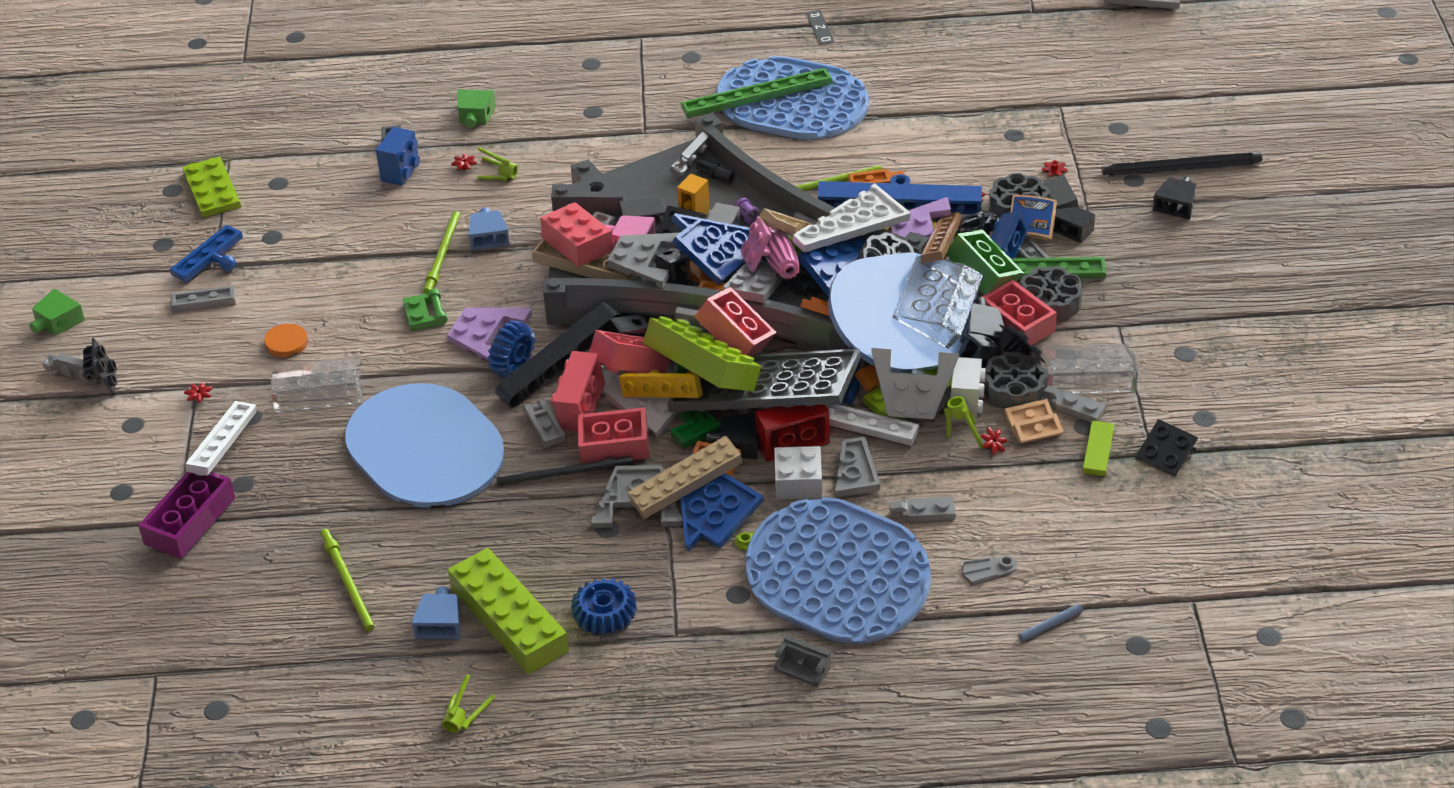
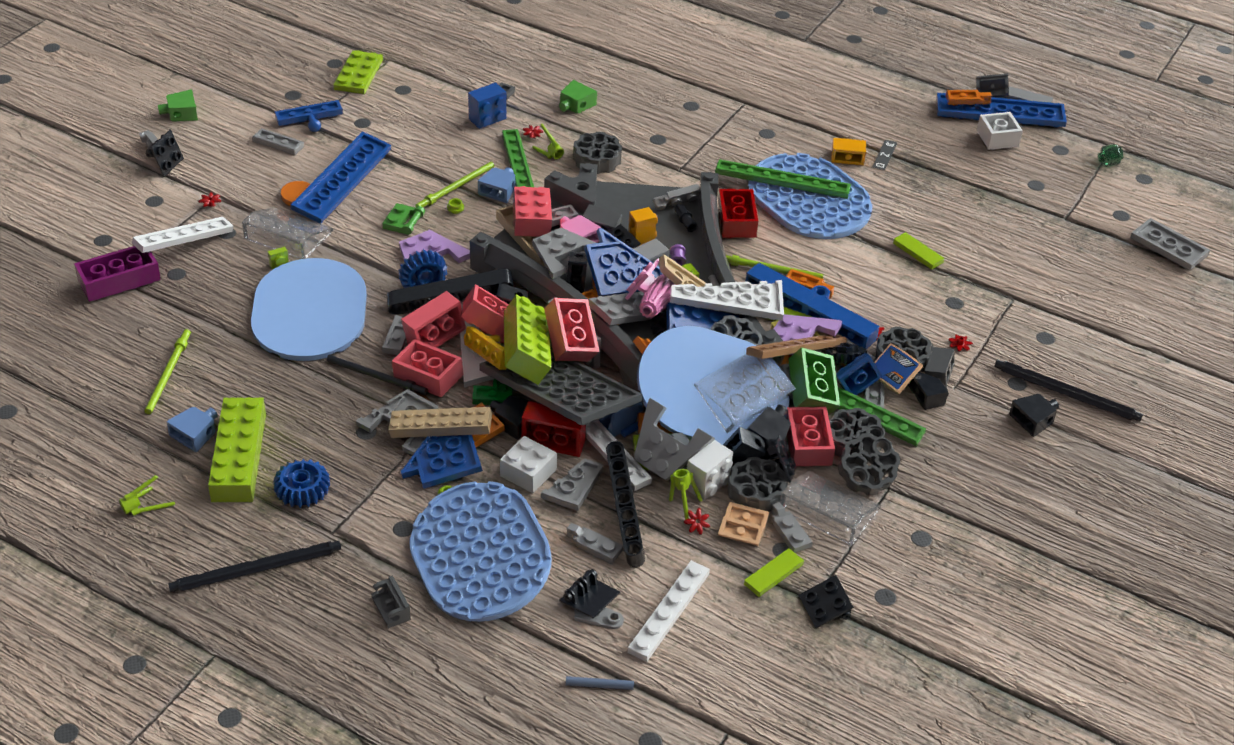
camera: 30 degrees right, 0 degrees up
(317, 301) = (340, 177): none -> blue plate
(341, 412) = (278, 257): none -> lime plate
(465, 272) = (455, 206): none -> lime plate
(480, 198) = (517, 158): none -> bright green tile
(552, 151) = (598, 149): none -> dark grey connector
(638, 706) = (254, 566): none -> black piece
(755, 141) = (737, 213): none -> red brick
(789, 38) = (848, 151): none -> light orange brick
(926, 466) = (625, 504): none -> black beam
(939, 102) = (918, 250): none -> lime tile
(968, 554) = (589, 594): none -> black hinge
(1045, 530) = (668, 611): none -> white plate
(1093, 311) = (867, 453): none -> dark grey connector

